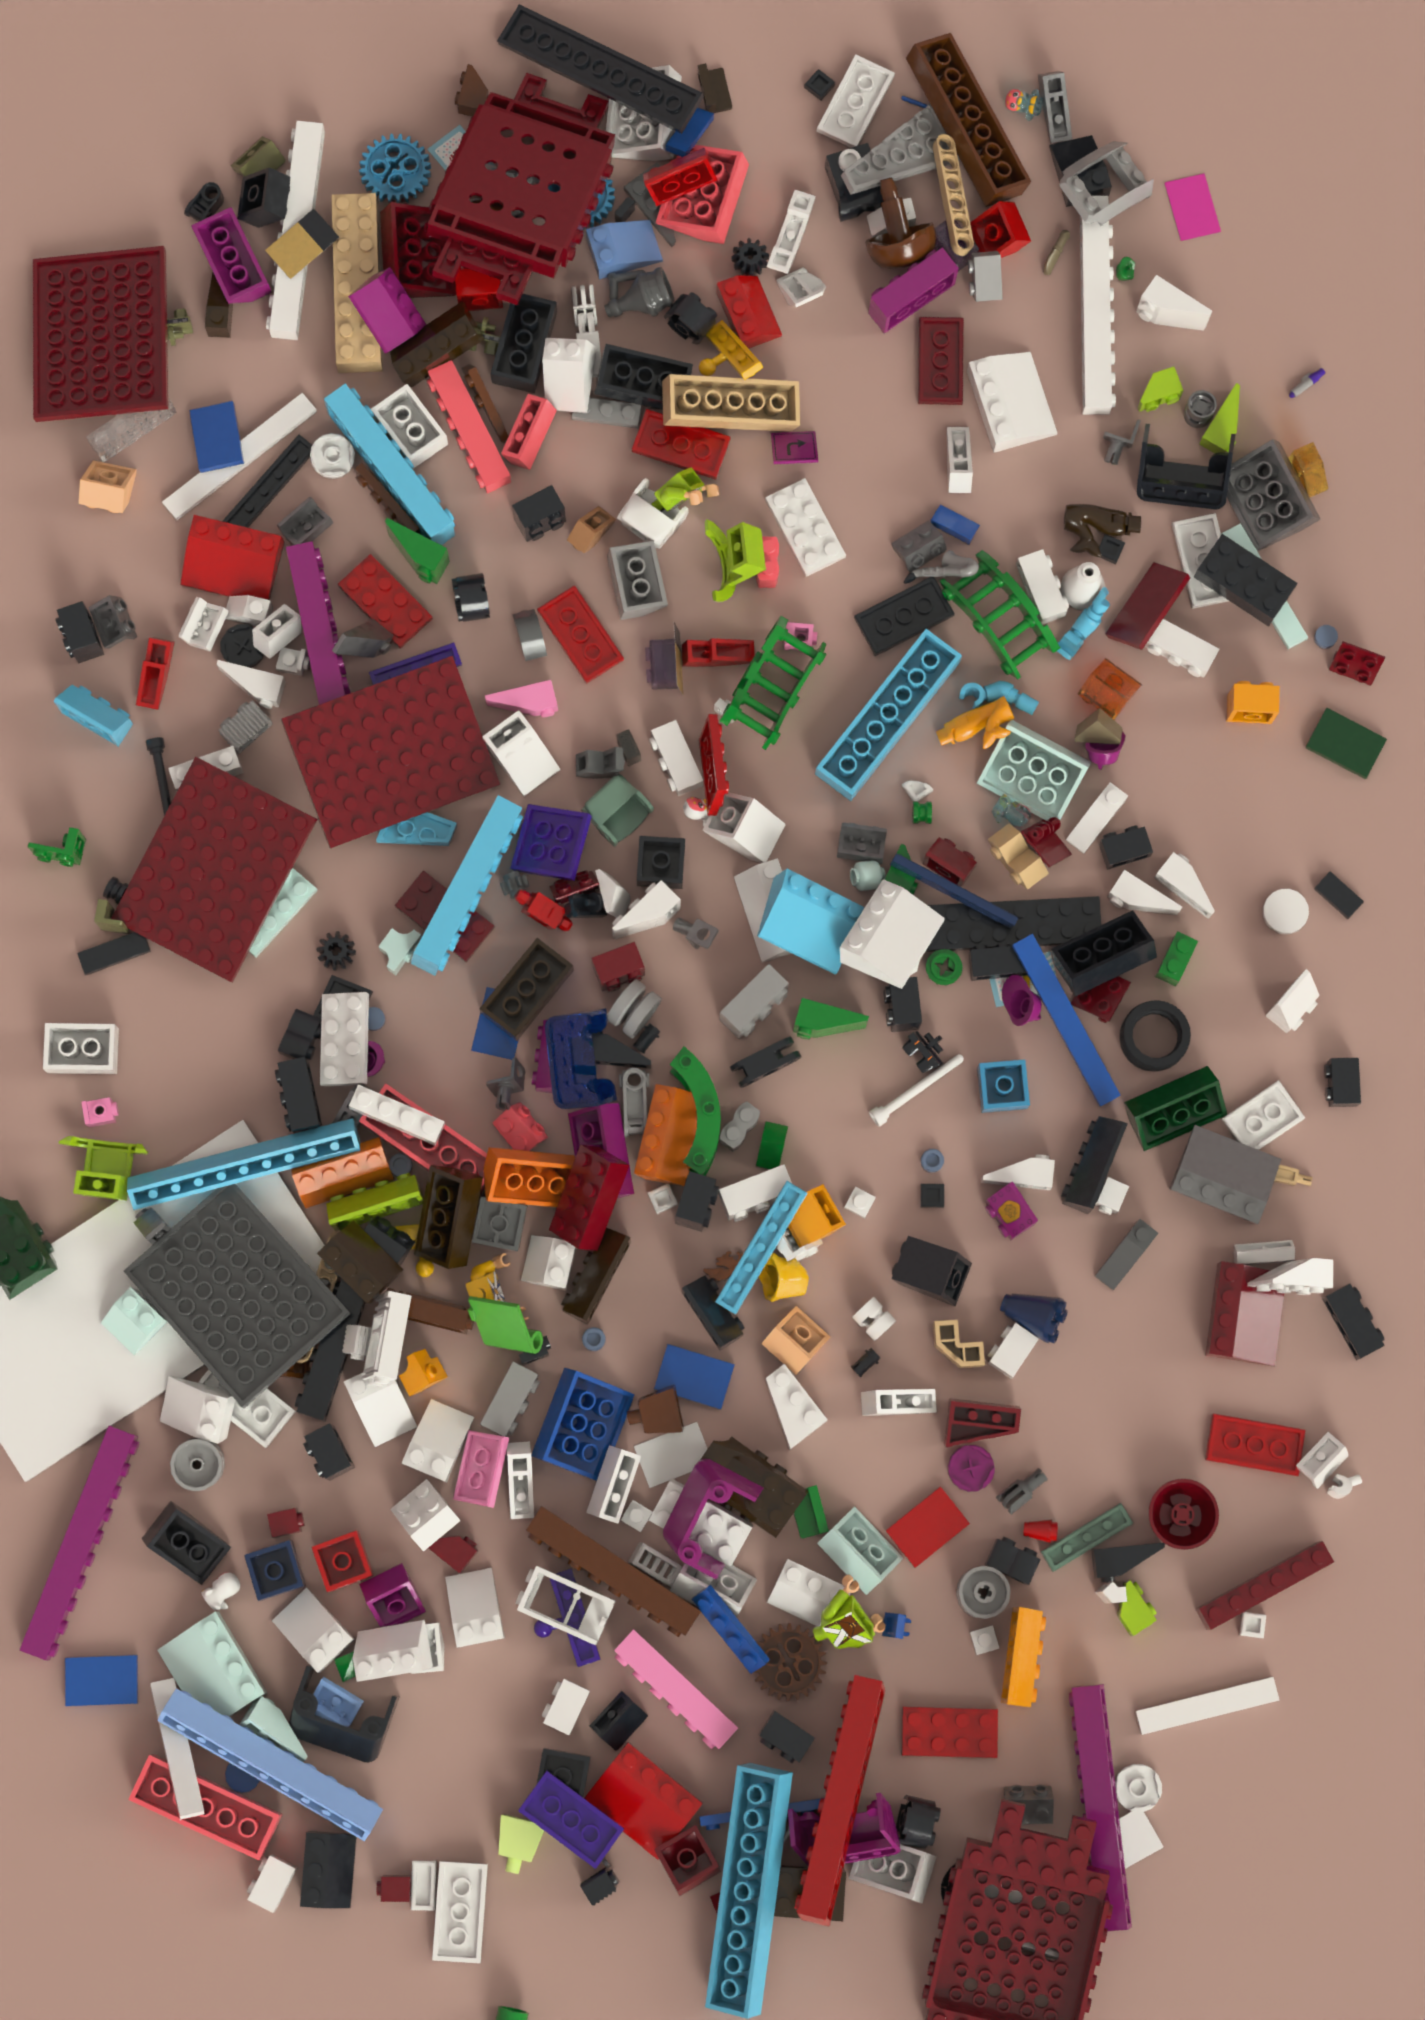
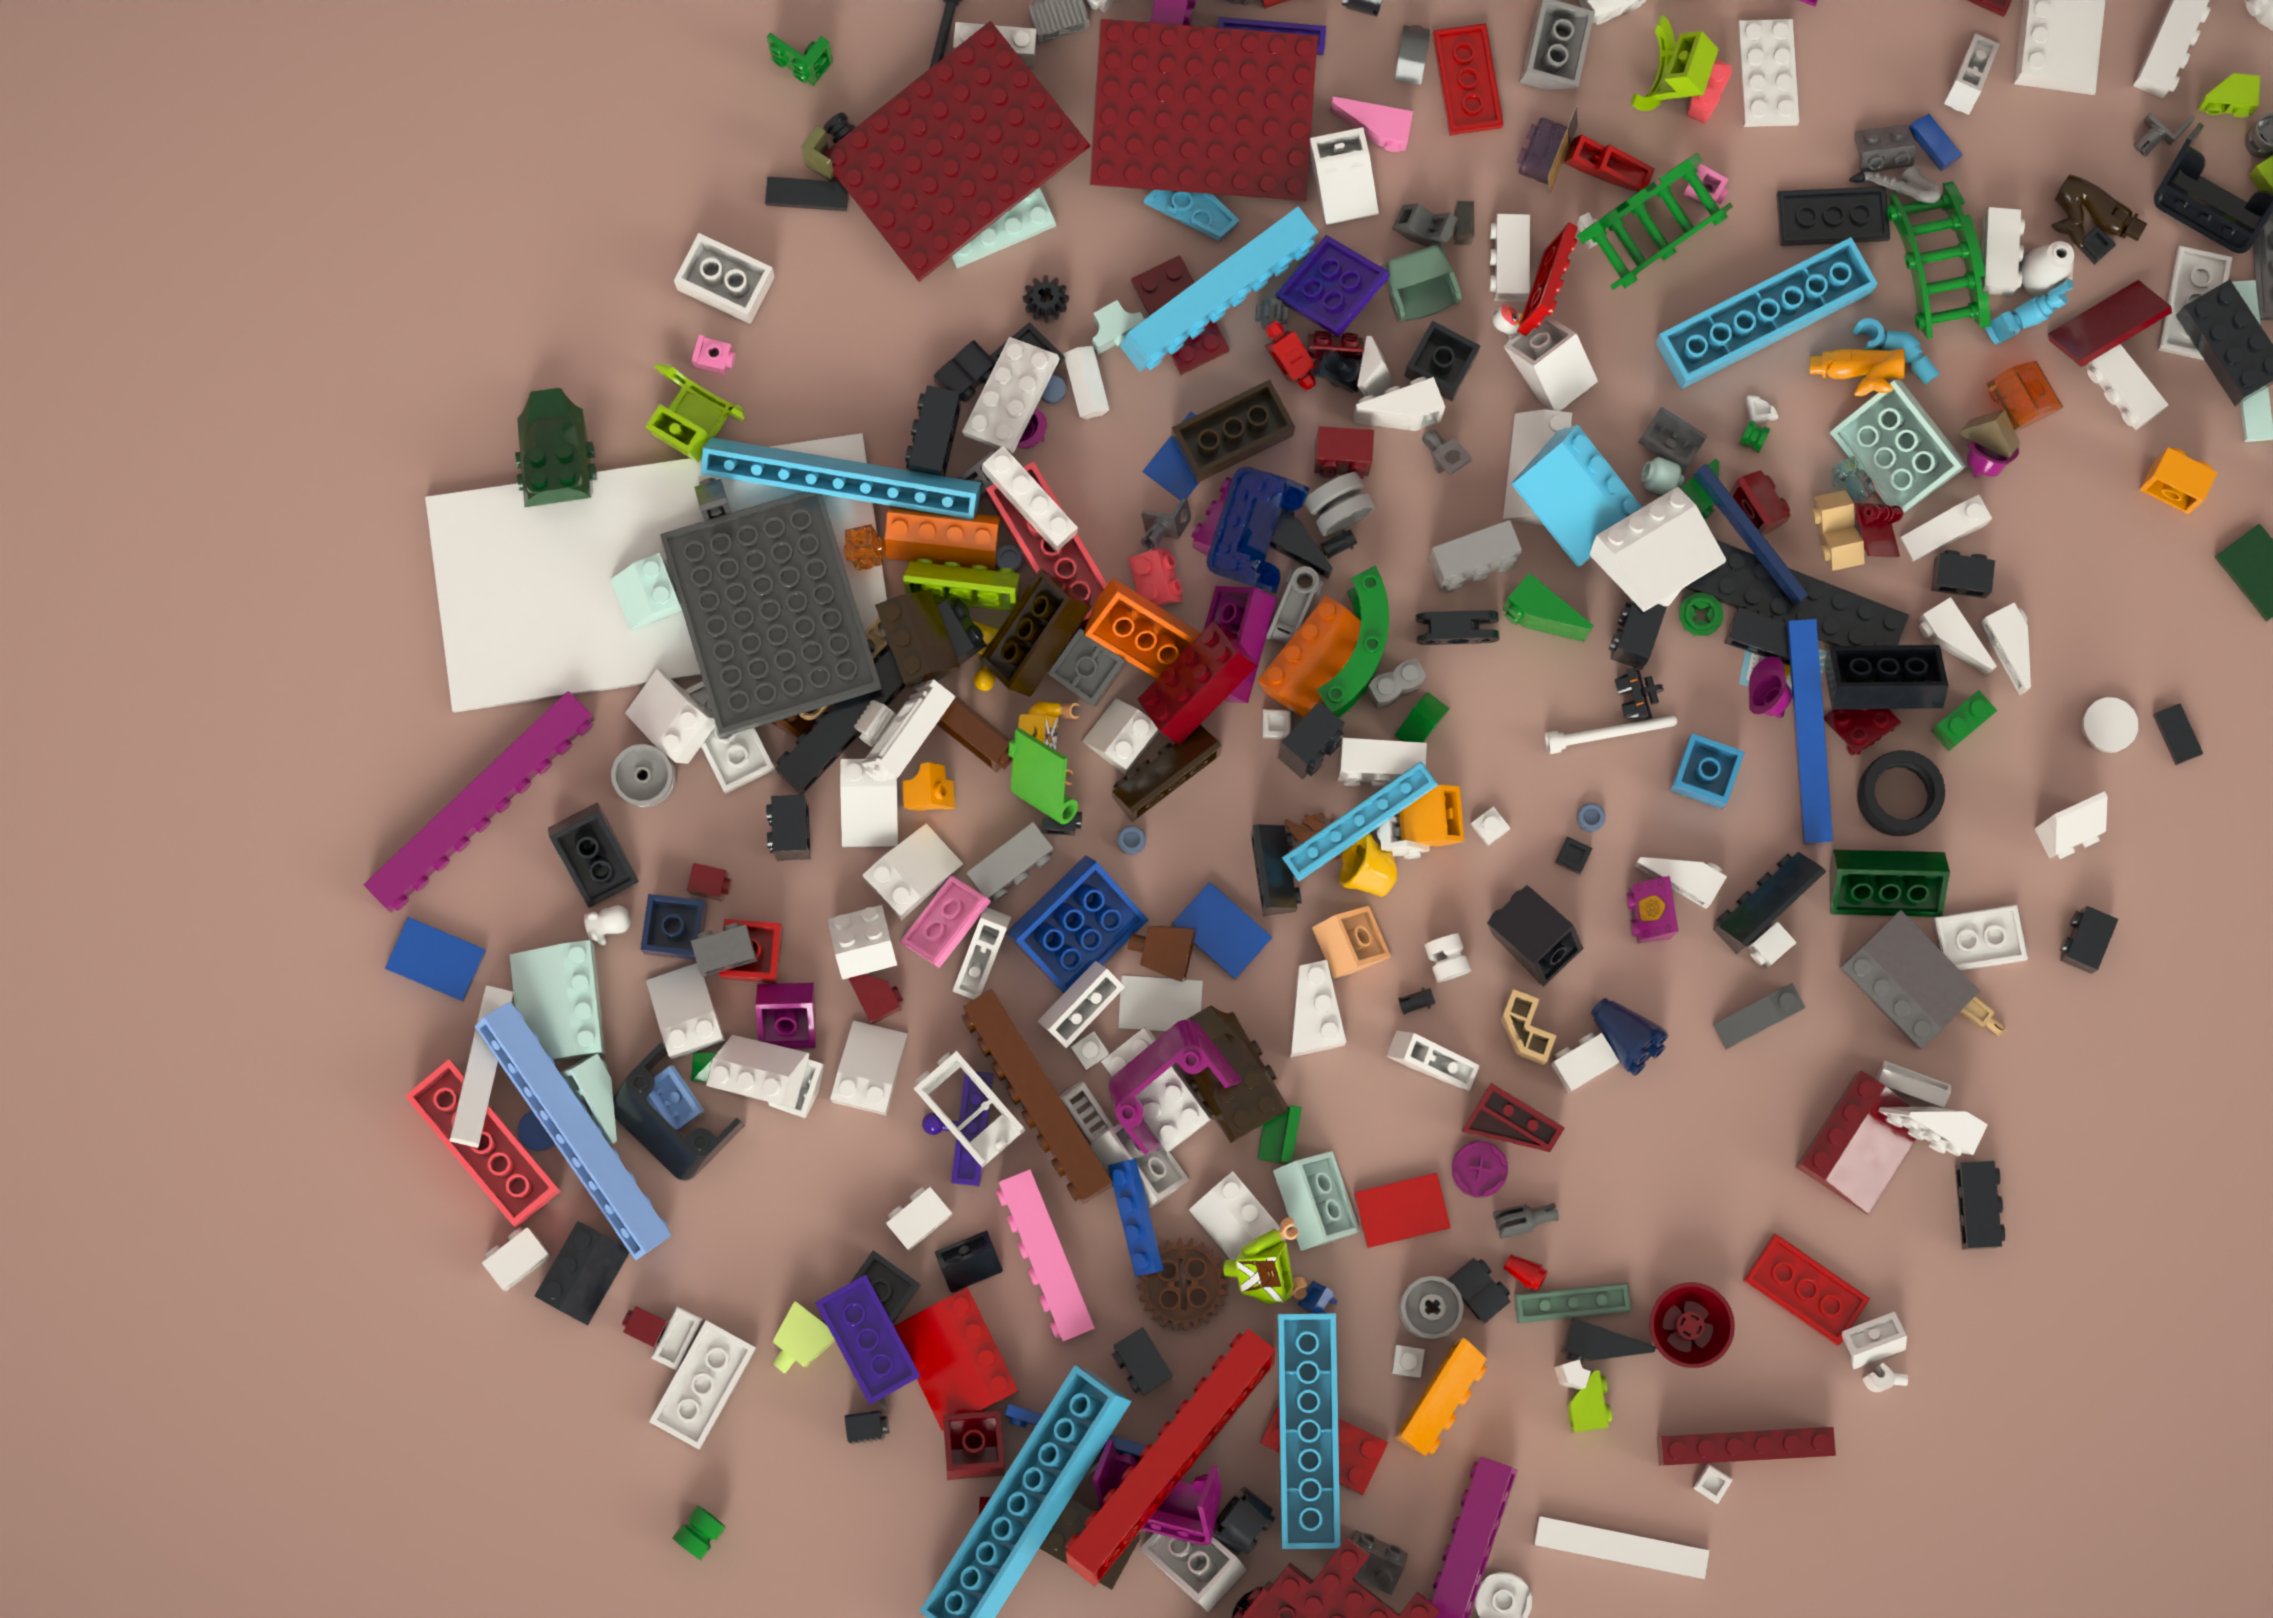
camera: 25 degrees right, 0 degrees up
(286, 1209) = (864, 547): none -> clear orange brick
(322, 1572) = (723, 949): none -> flat silver brick
(397, 1001) = (1086, 382): none -> white piece
(935, 1730) = (1308, 1431): none -> medium azure brick

